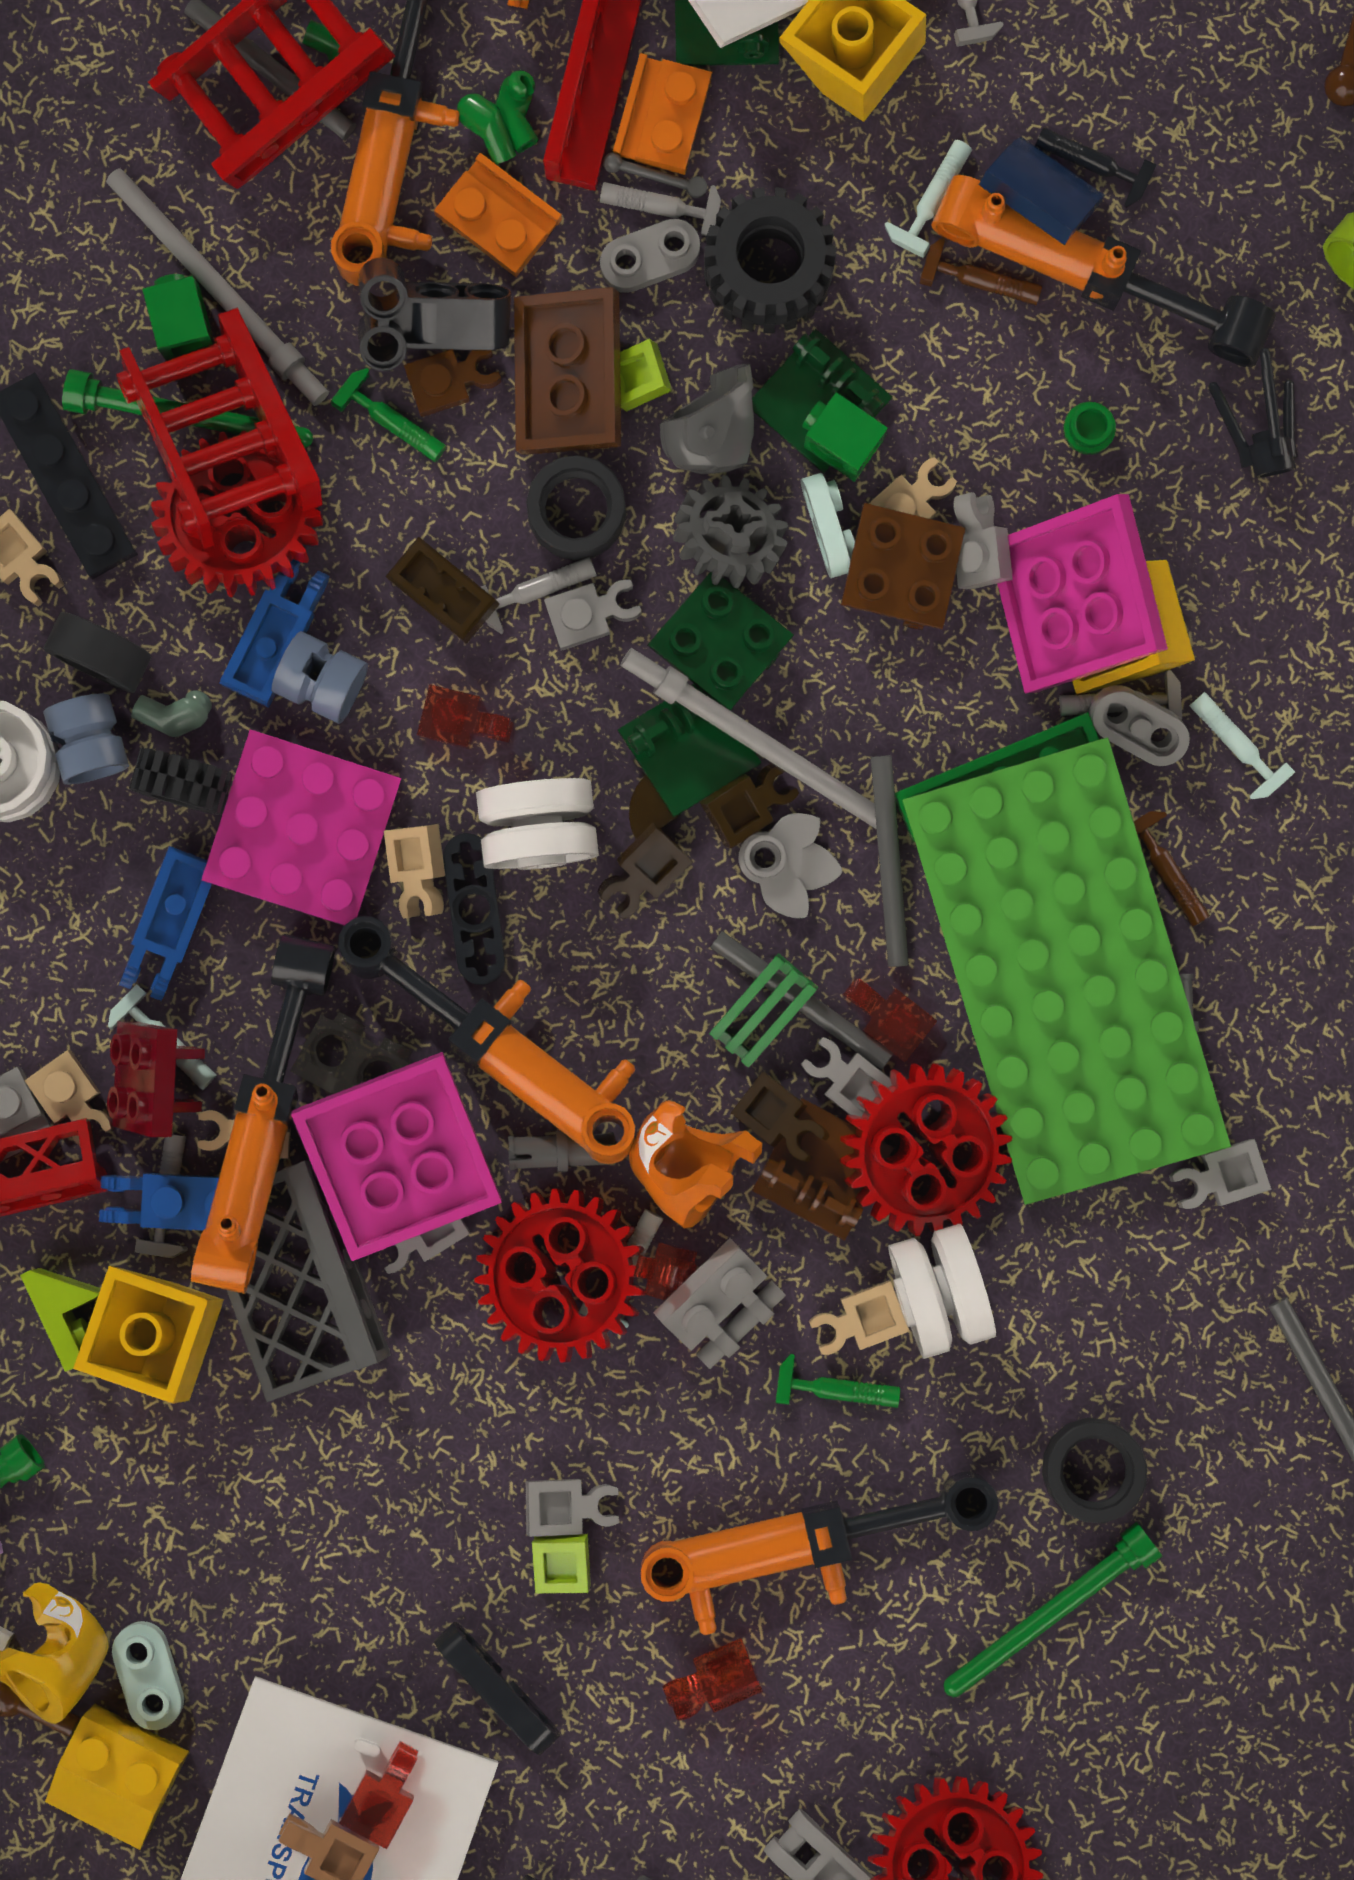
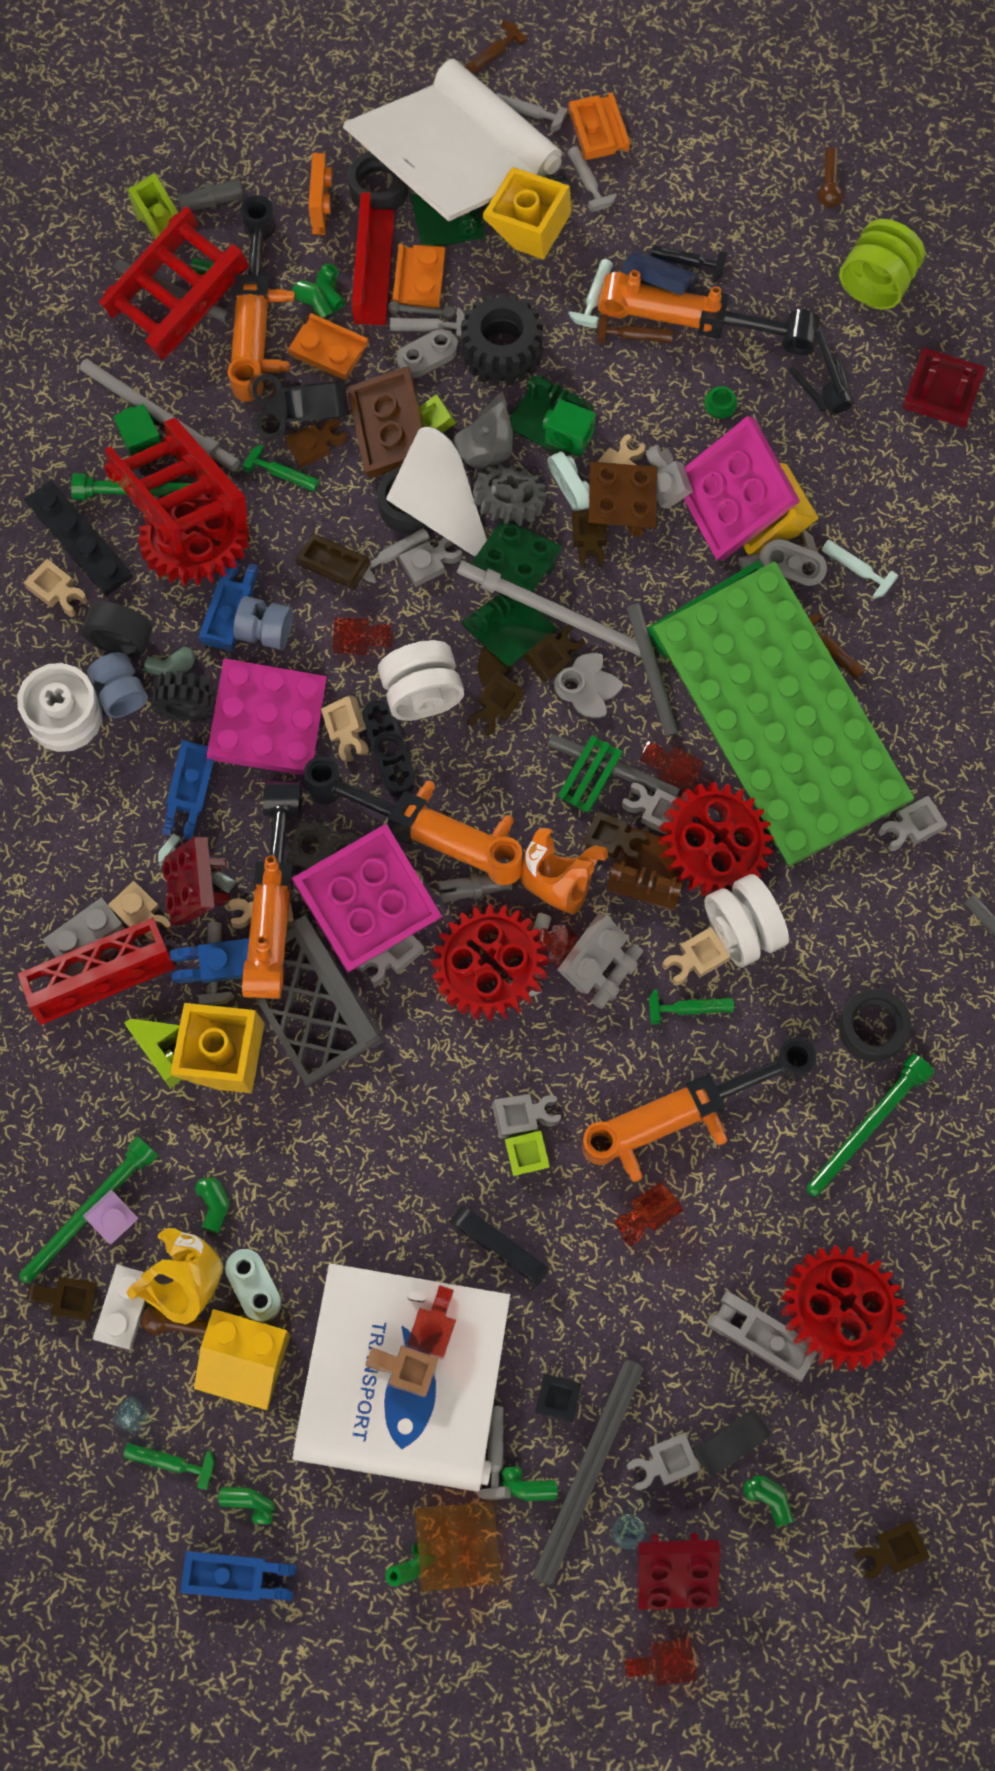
camera: 10 degrees left, 15 degrees down
(114, 1546) = (217, 1202): none -> green arm
(620, 509) = (437, 491): none -> white sticker
(836, 621) = (588, 536): none -> dark brown plate

